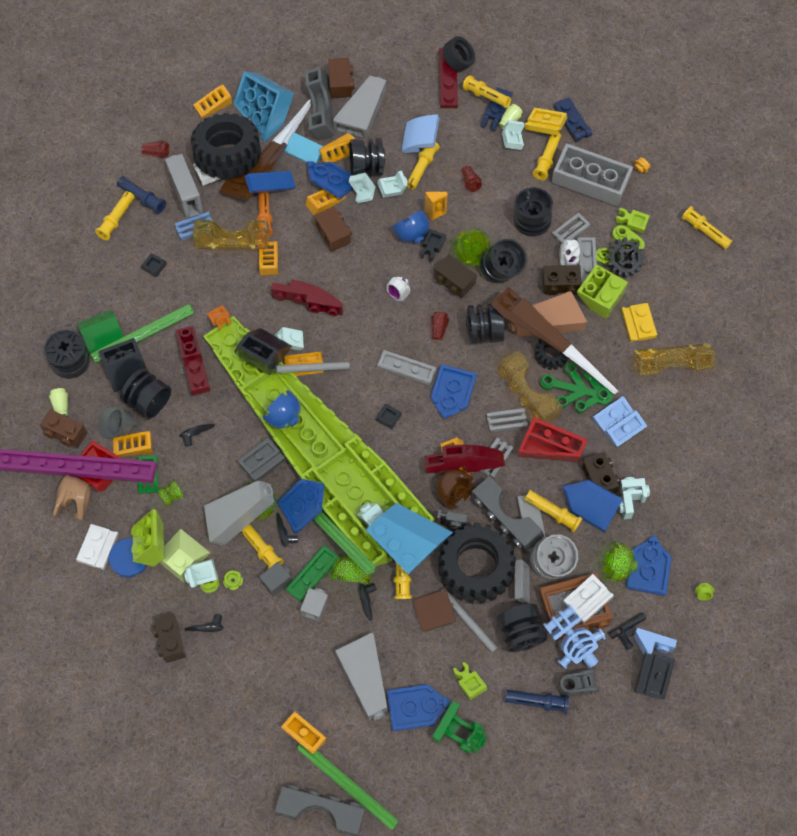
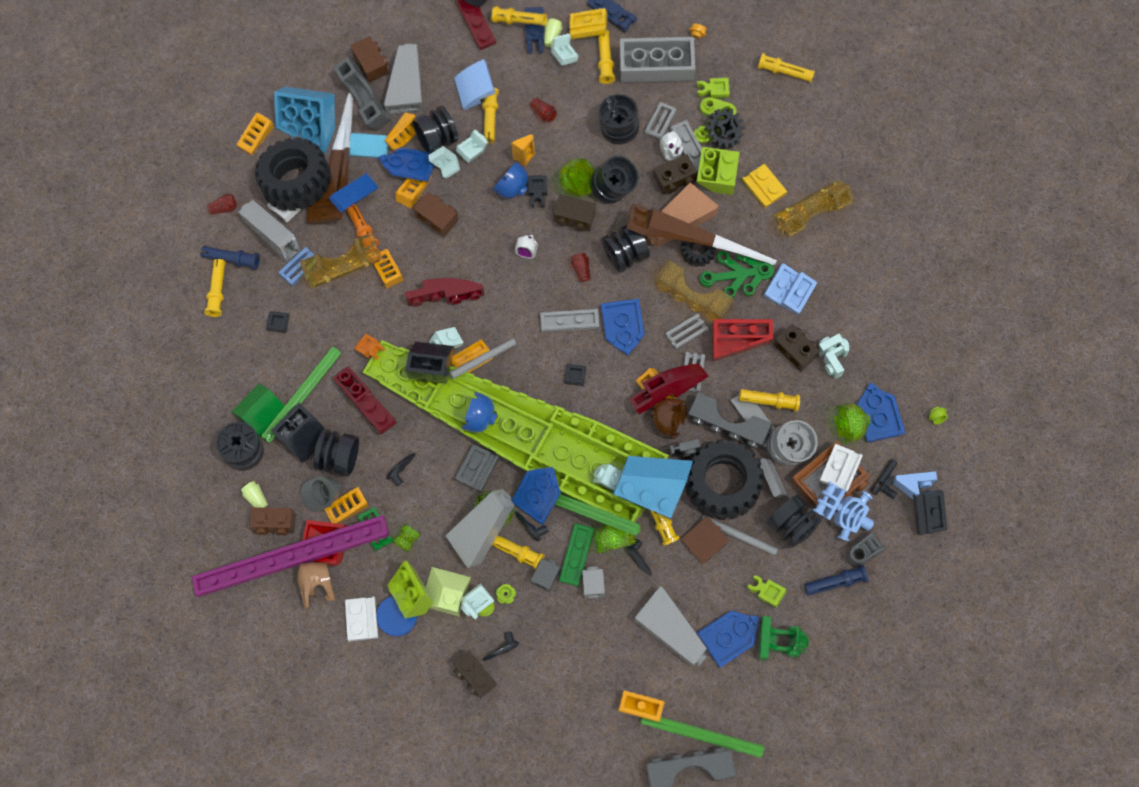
camera: 20 degrees left, 5 degrees up
(592, 503) = (802, 377): blue tile -> none

